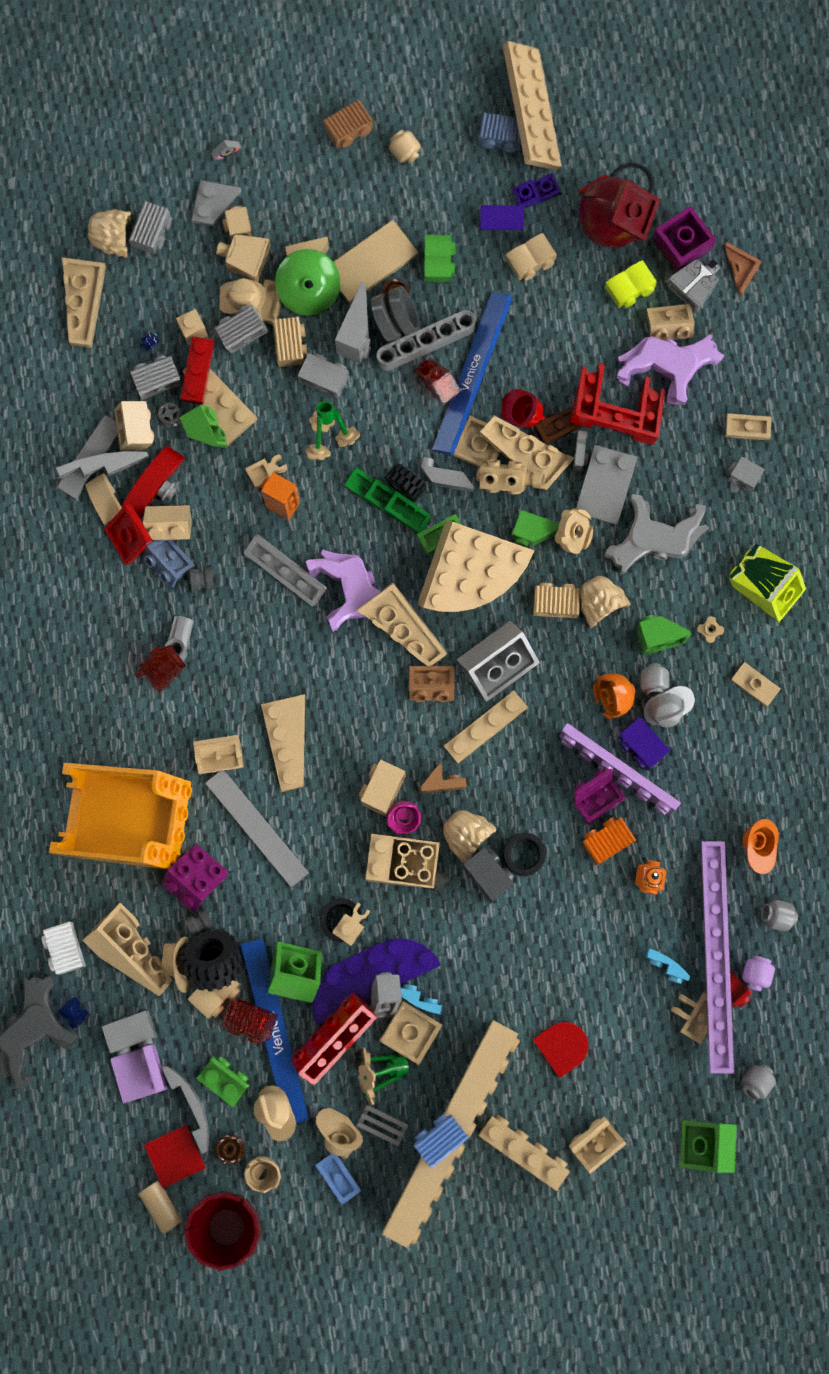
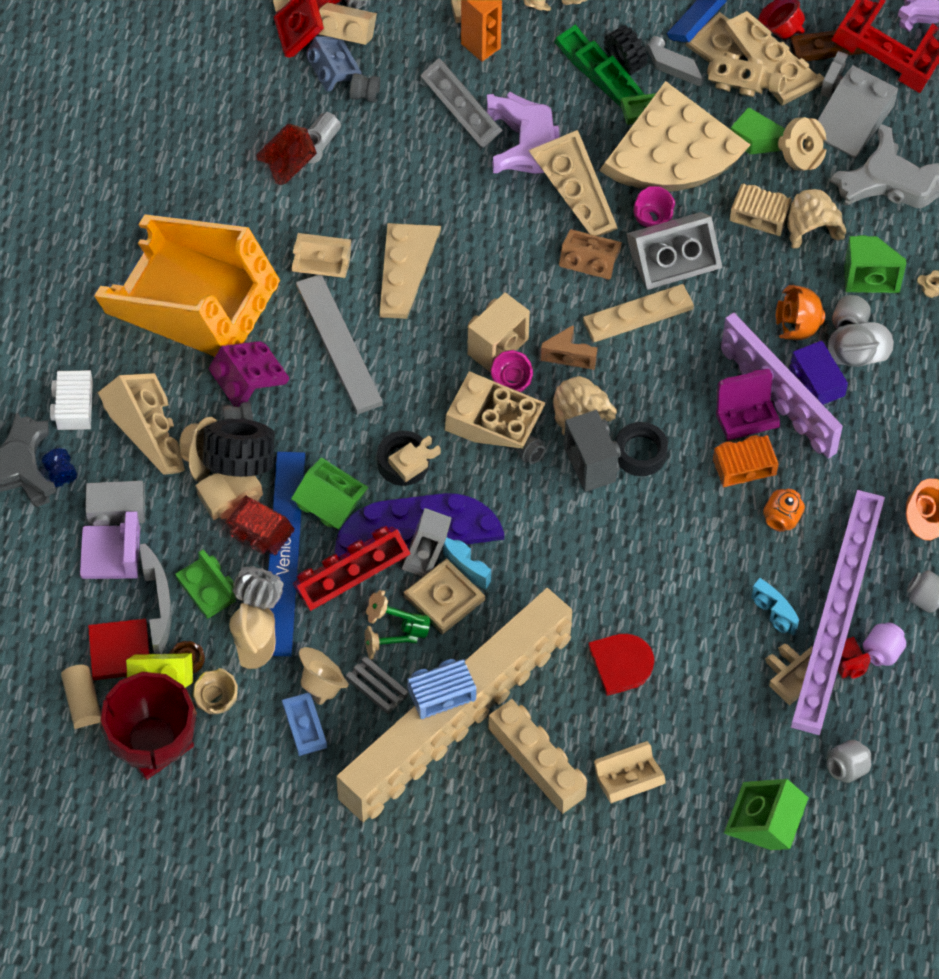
camera: 15 degrees right, 20 degrees down
(215, 1175) = (174, 665): none -> neon yellow brick
(267, 1080) = (258, 587): none -> light grey gear
(473, 619) = (653, 200): none -> dark pink hair

